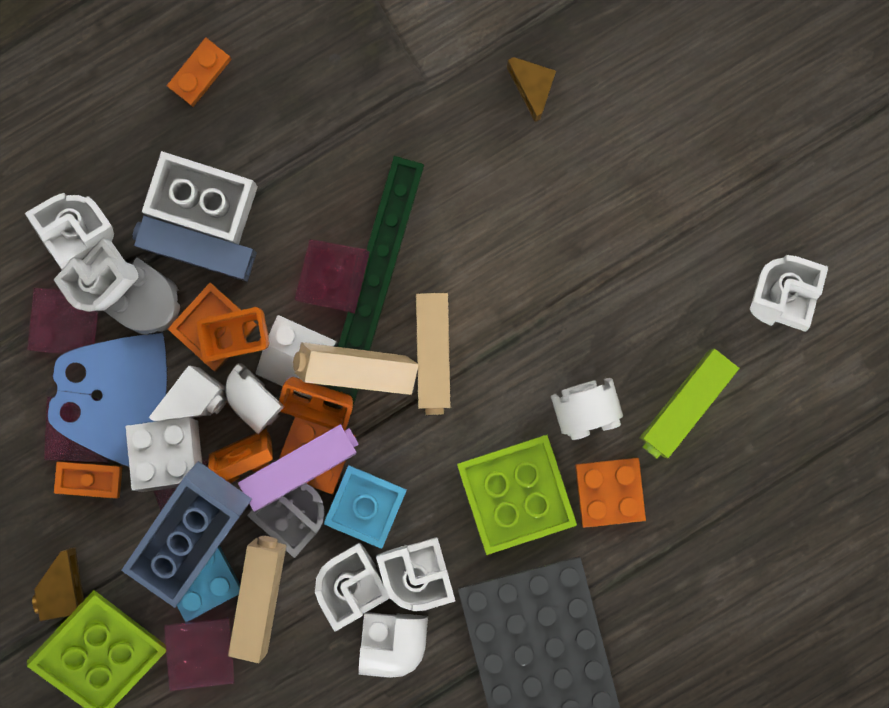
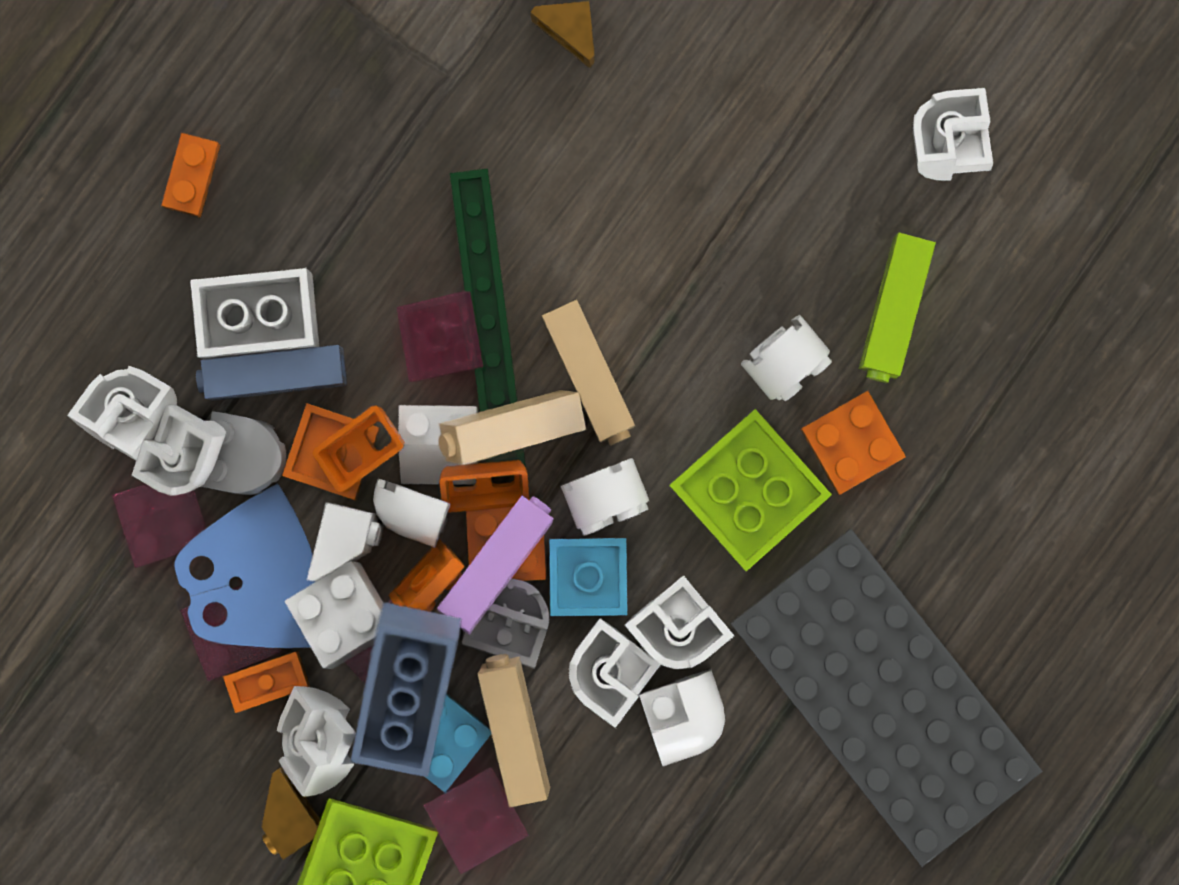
camera: 20 degrees left, 0 degrees up
(104, 540) = (315, 740): none -> white brick
(404, 451) = (606, 494): none -> white brick

